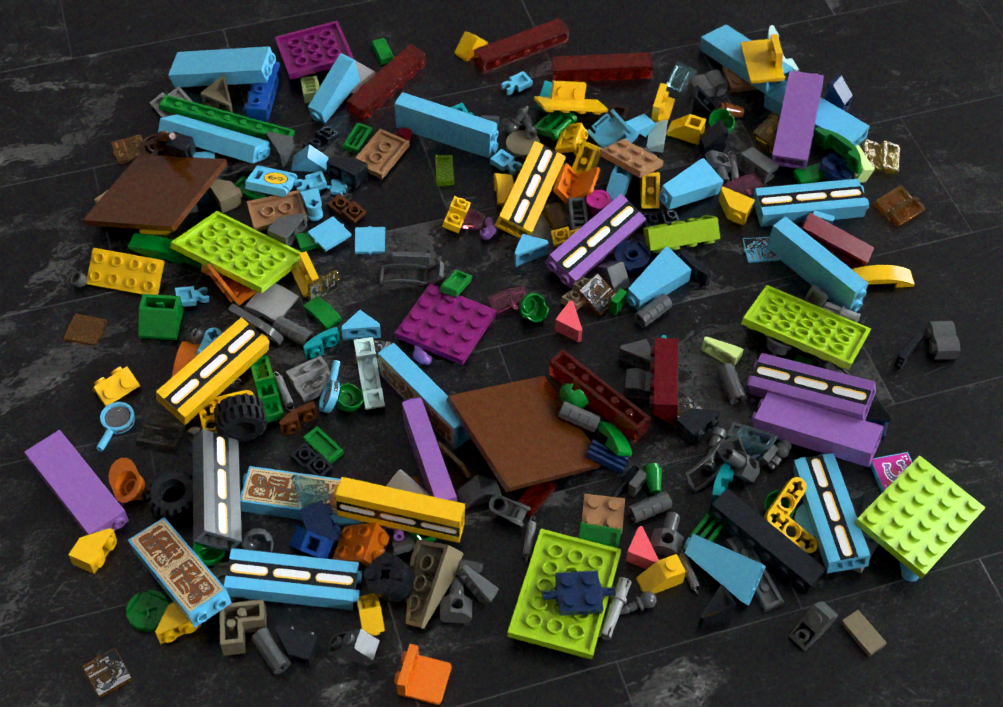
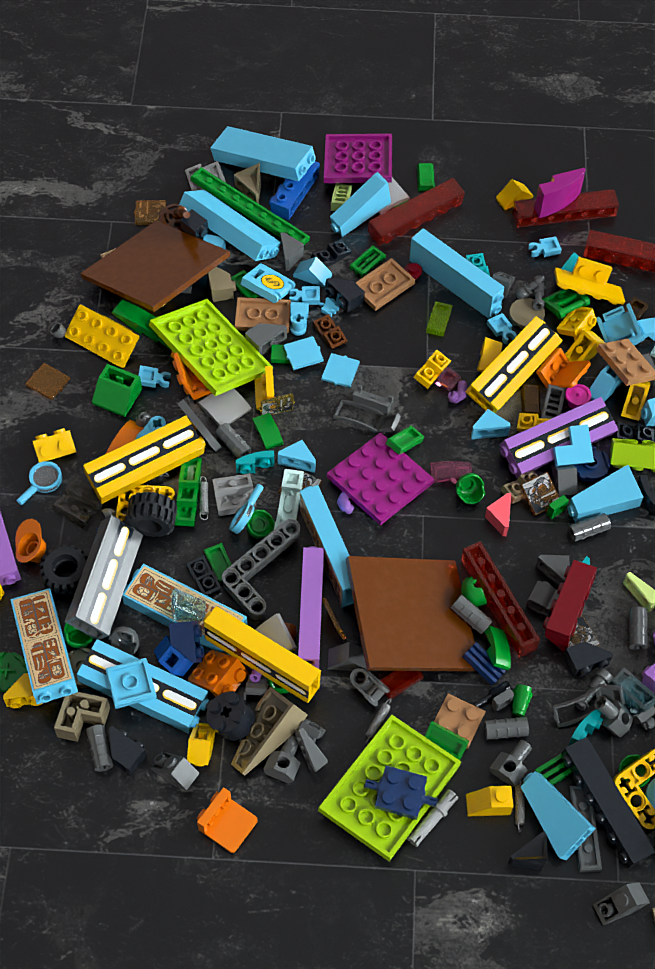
camera: 20 degrees right, 5 degrees up
(281, 578) = (130, 683): none -> medium azure tile
(291, 422) = (199, 531): reddish brown slope -> none
(359, 432) = (257, 564): none -> dark grey beam
(513, 30) = (559, 192): none -> magenta slope
(618, 247) = (579, 451): none -> medium azure tile
(641, 551) = (479, 769): coral slope -> none
(646, 600) = (466, 820): dark grey bar -> none

